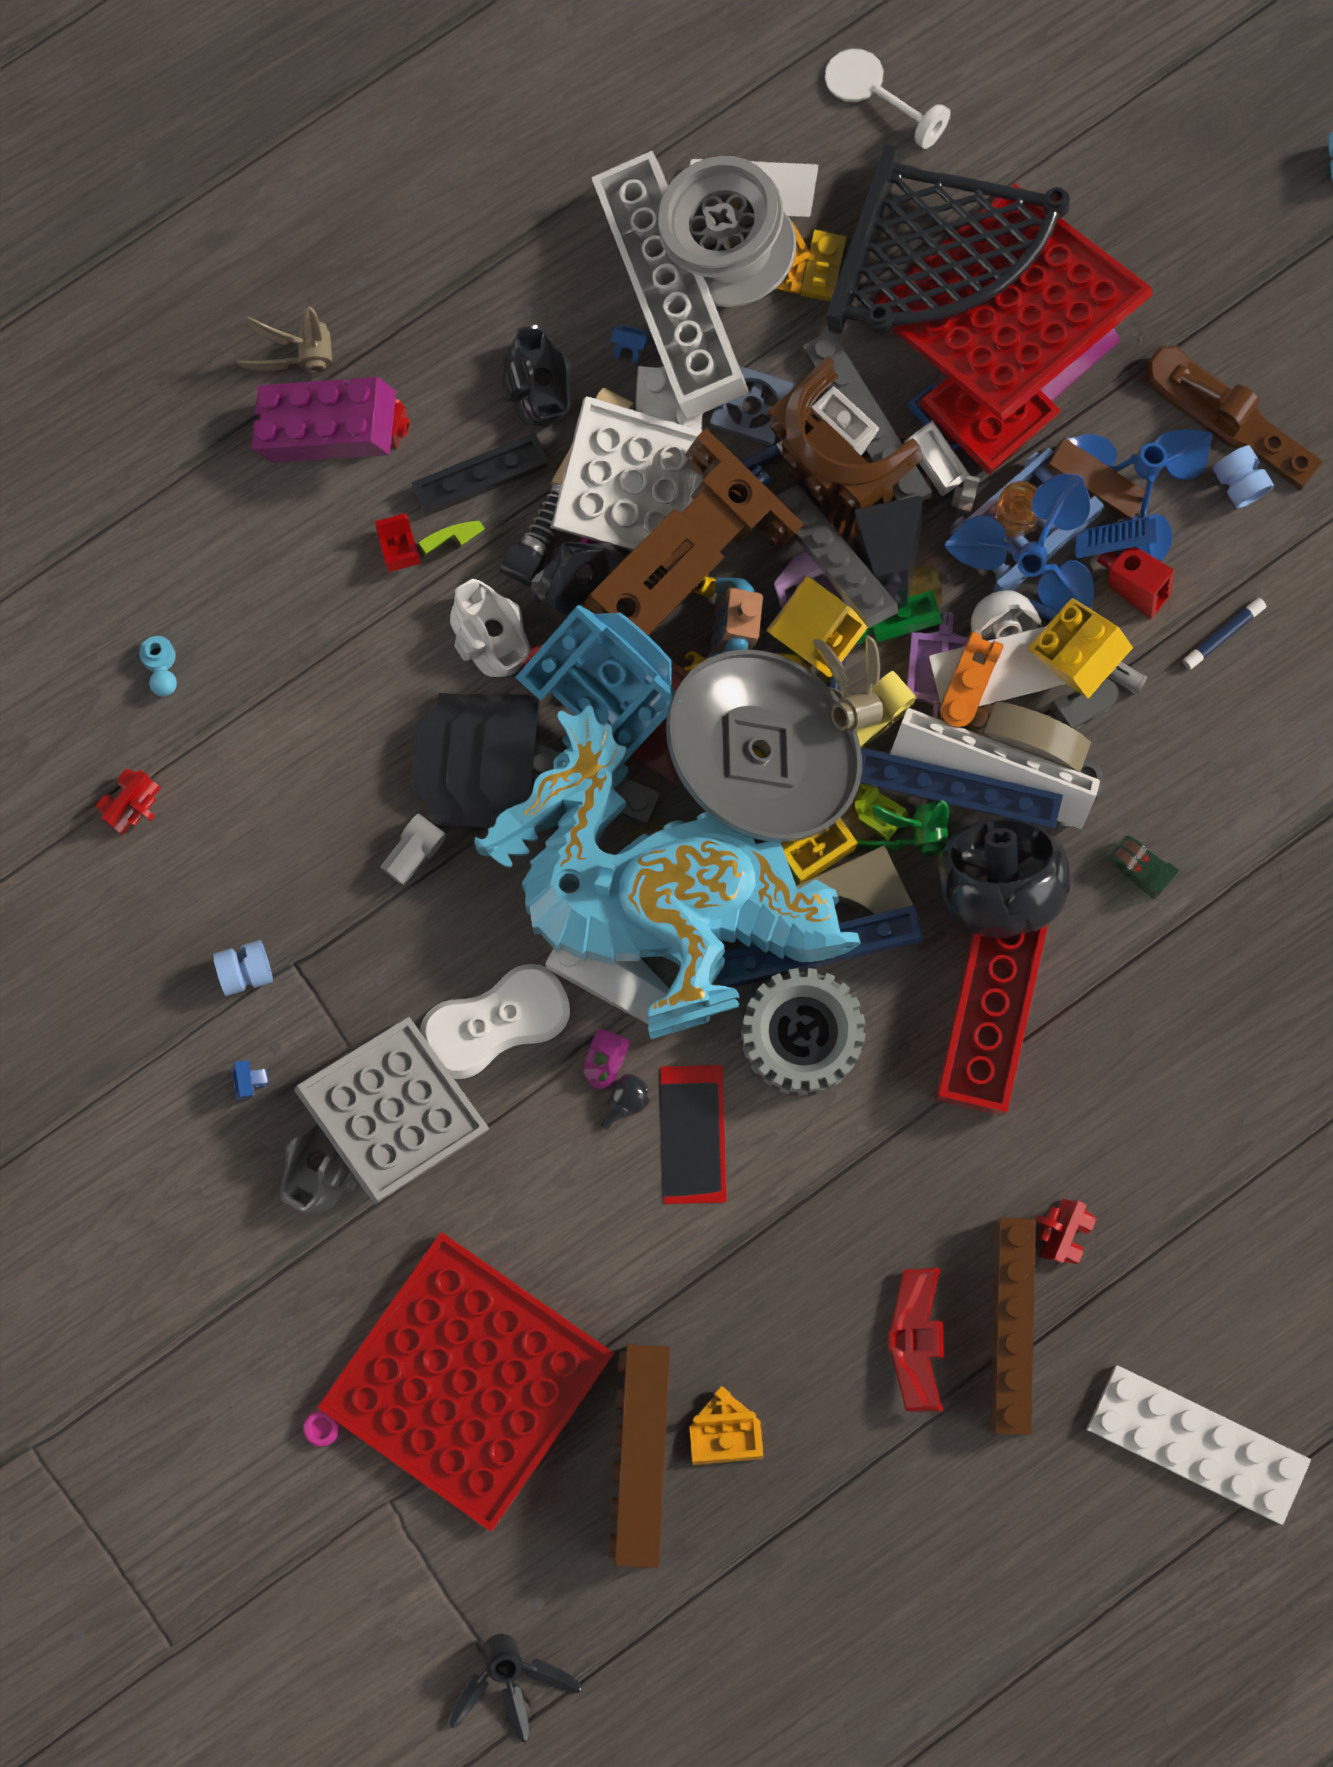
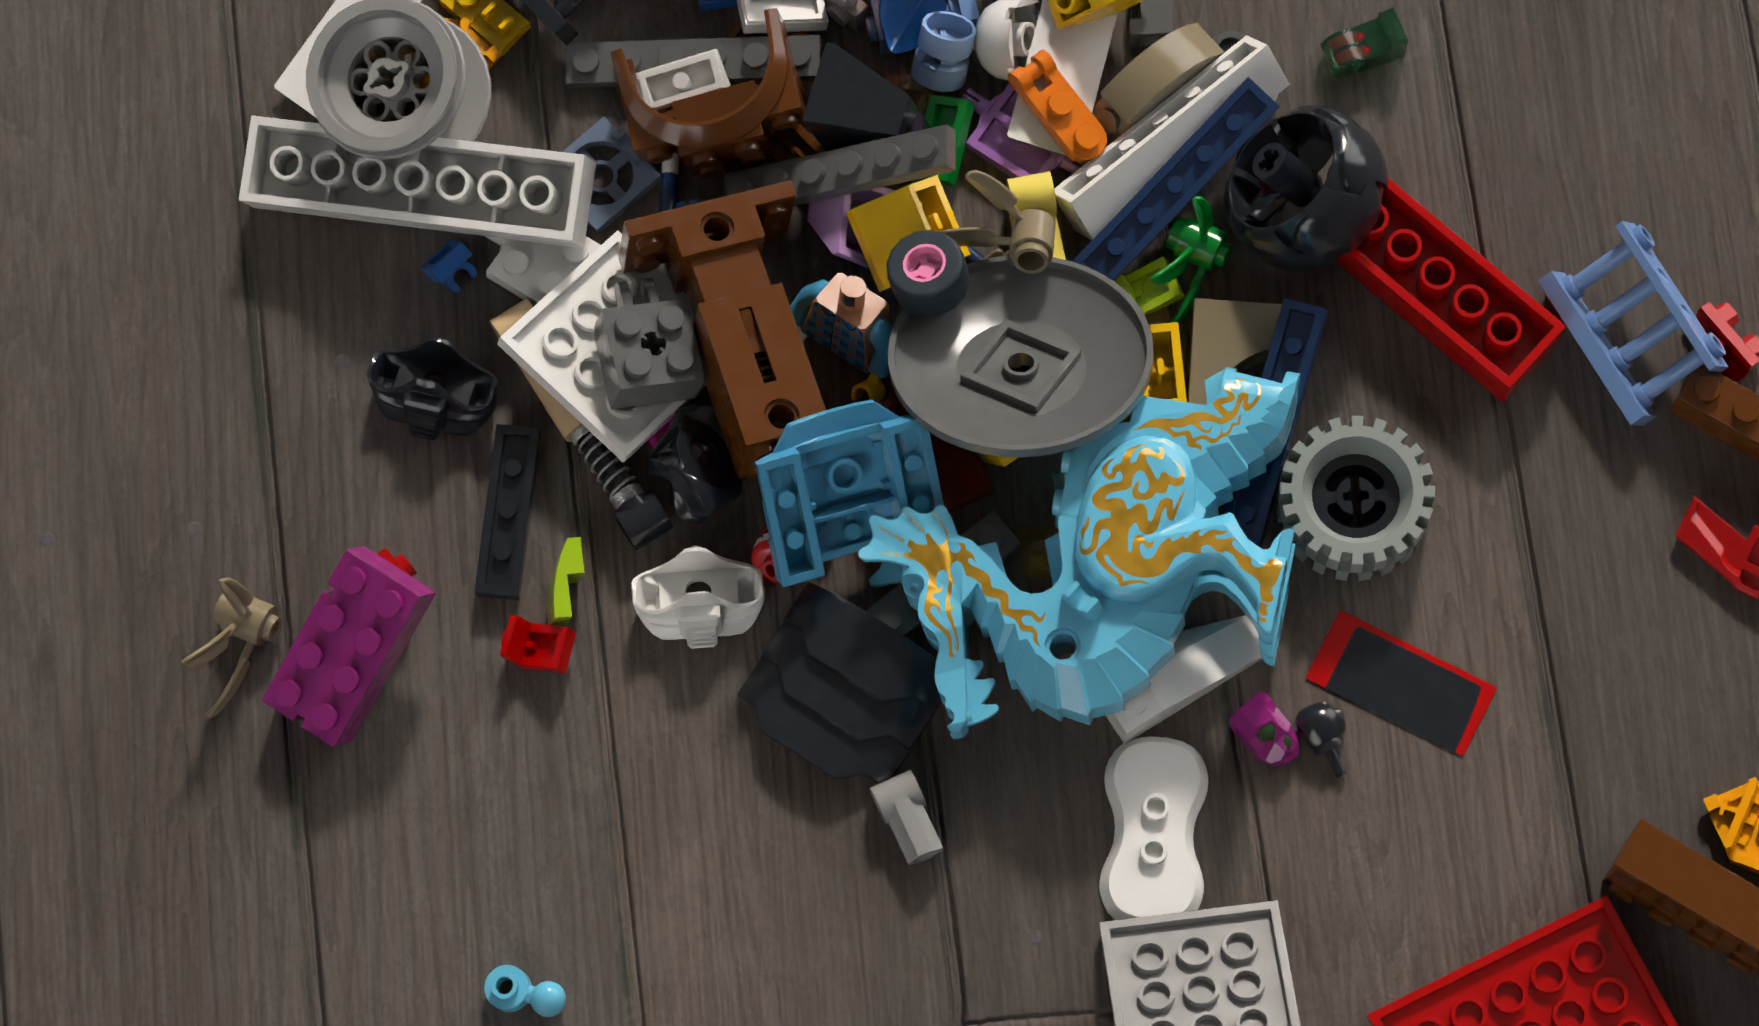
camera: 55 degrees left, 5 degrees down
(652, 496) = (647, 349): none -> dark grey hinge
(789, 652) = (928, 273): none -> black wheel
(967, 580) = (943, 51): none -> light blue wheel
(1021, 1131) = (1613, 362): none -> medium blue fence

